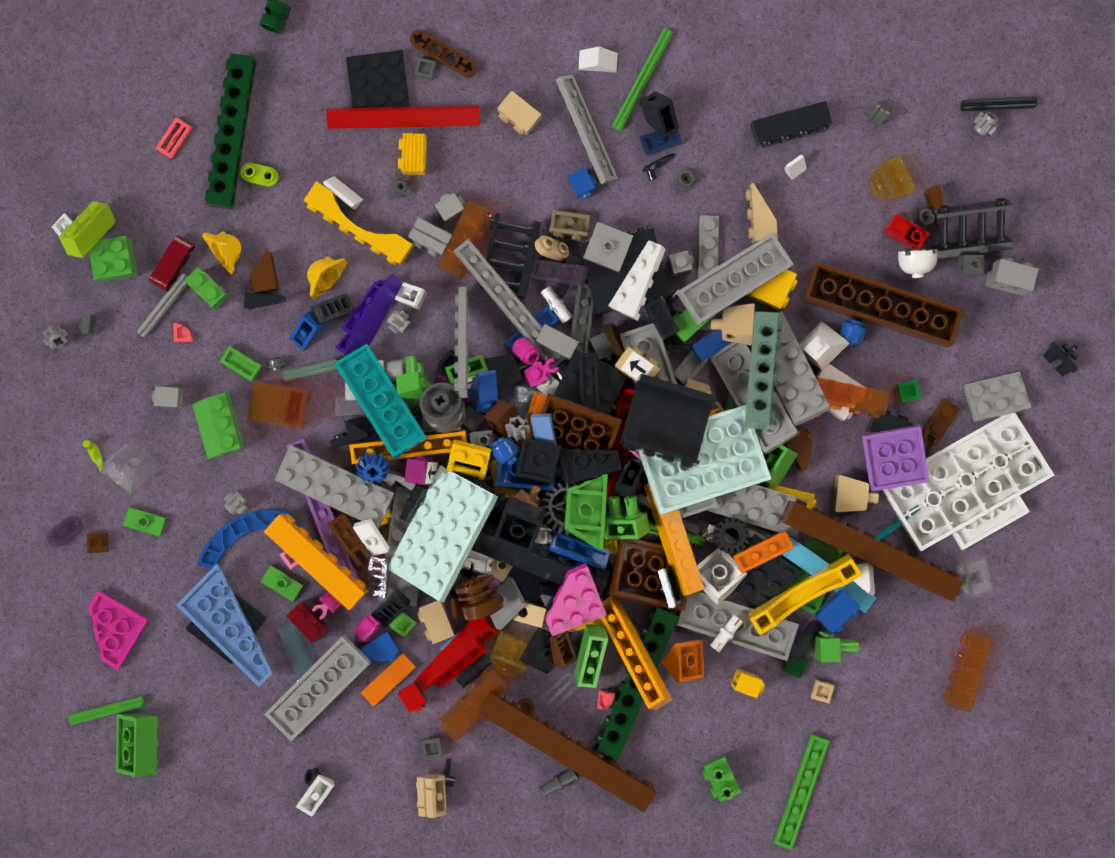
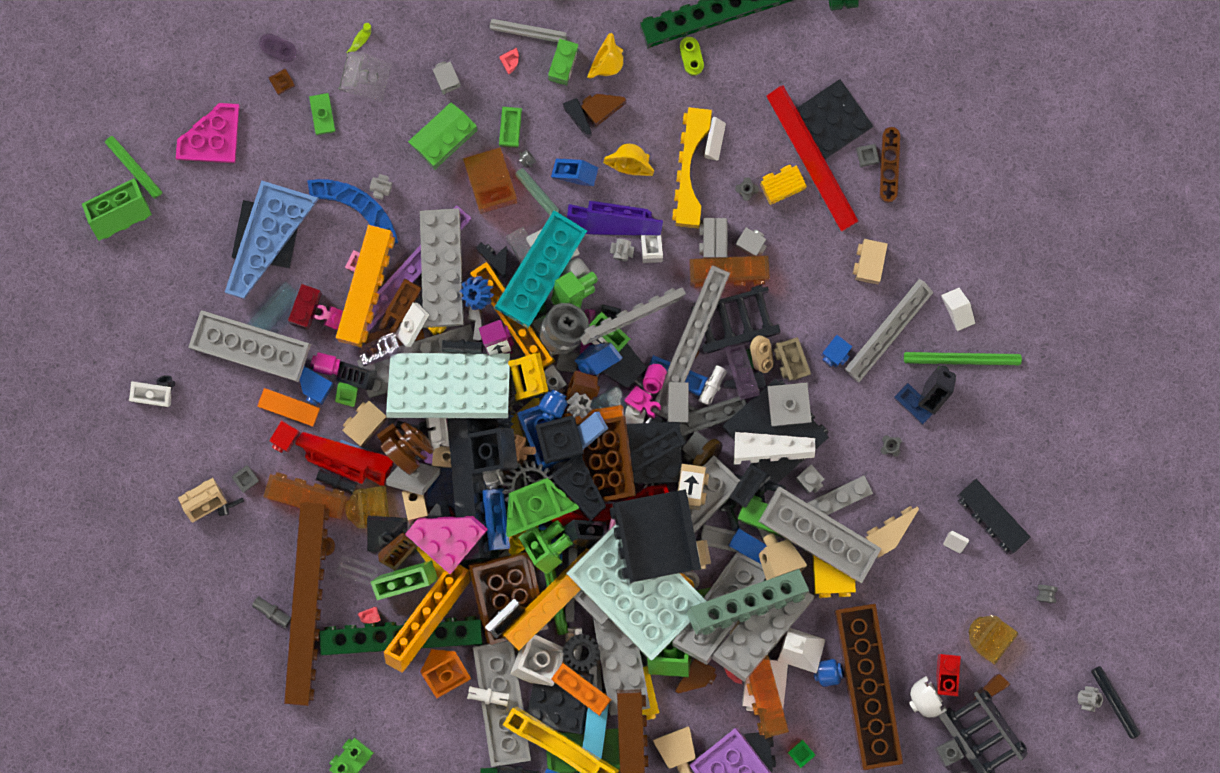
camera: 60 degrees right, 5 degrees down
(171, 262) = (572, 18): dark red beam -> none
(282, 583) = (328, 266): bright green plate -> none
(342, 303) = (612, 190): black slope -> none
(656, 164) = (883, 407): black bar -> none
(747, 683) = (452, 739): yellow brick -> none
(925, 222) = (969, 683): dark grey plate -> none

